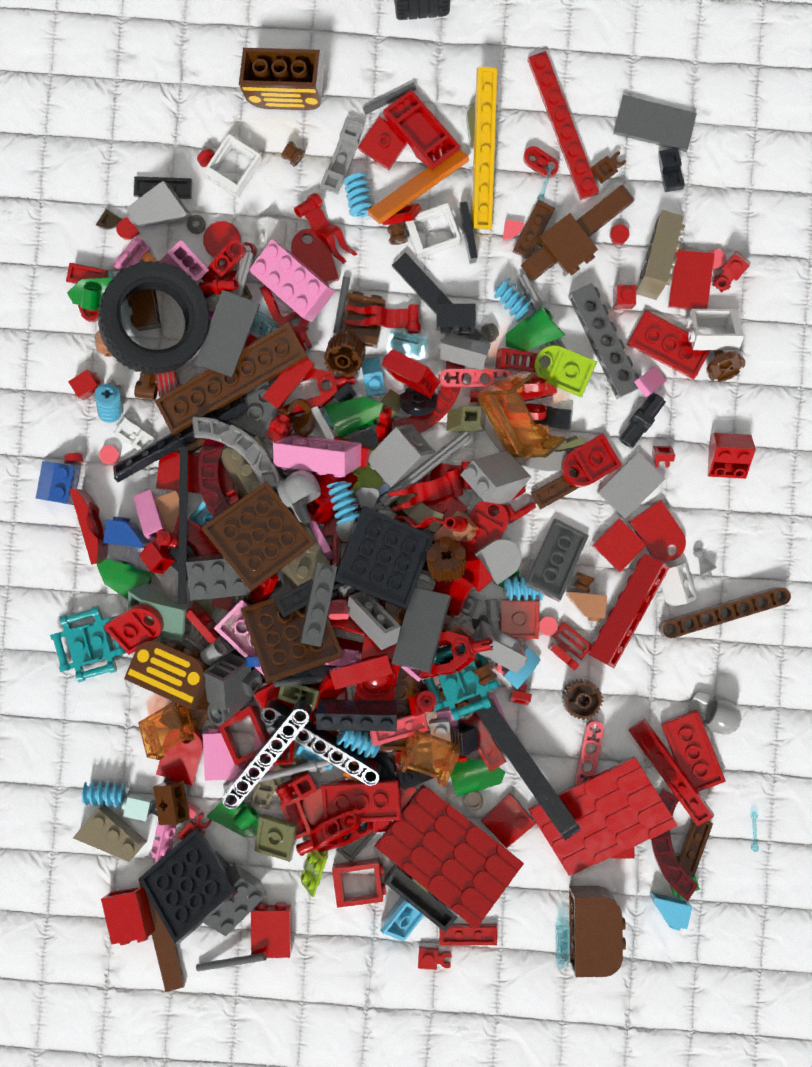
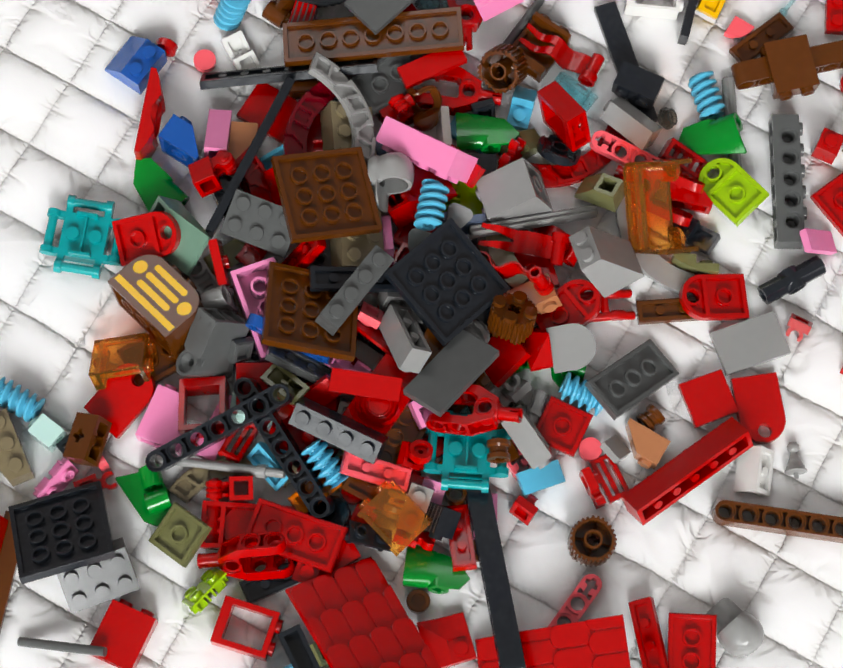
camera: 25 degrees right, 15 degrees down
(567, 618) = (615, 449): none -> light grey tile

